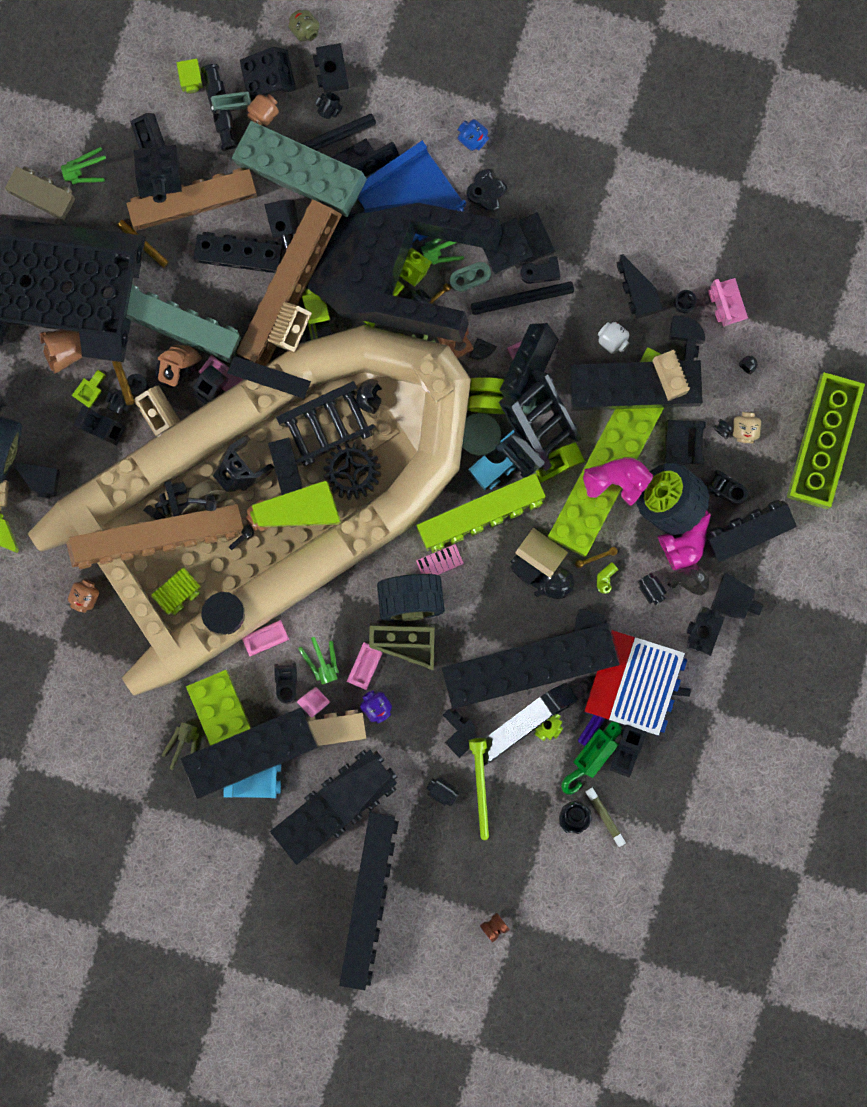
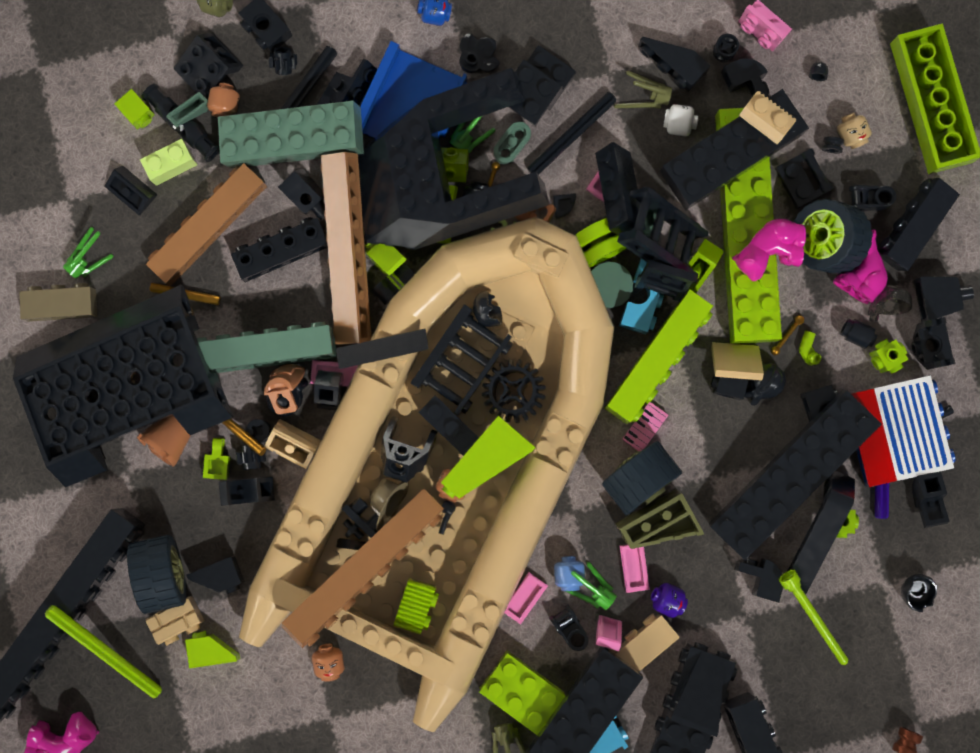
camera: 30 degrees left, 0 degrees up
(157, 172) = (158, 217): black brick -> none
(191, 132) = (168, 162): none -> yellowish green brick
(208, 502) = (395, 503): black hand -> none
(223, 613) = (475, 603): black tile -> none
(289, 326) = (372, 288): tan brick -> none
(304, 637) = (563, 574): none -> medium blue head
(442, 791) = (779, 643): black brick -> none
(540, 273) = (570, 104): black leg -> none
(591, 757) = (901, 527): green piece -> none
(605, 817) = (944, 573): olive bar -> none
(611, 305) = (659, 93): none -> olive plant
(656, 623) = (881, 359): none -> lime brick

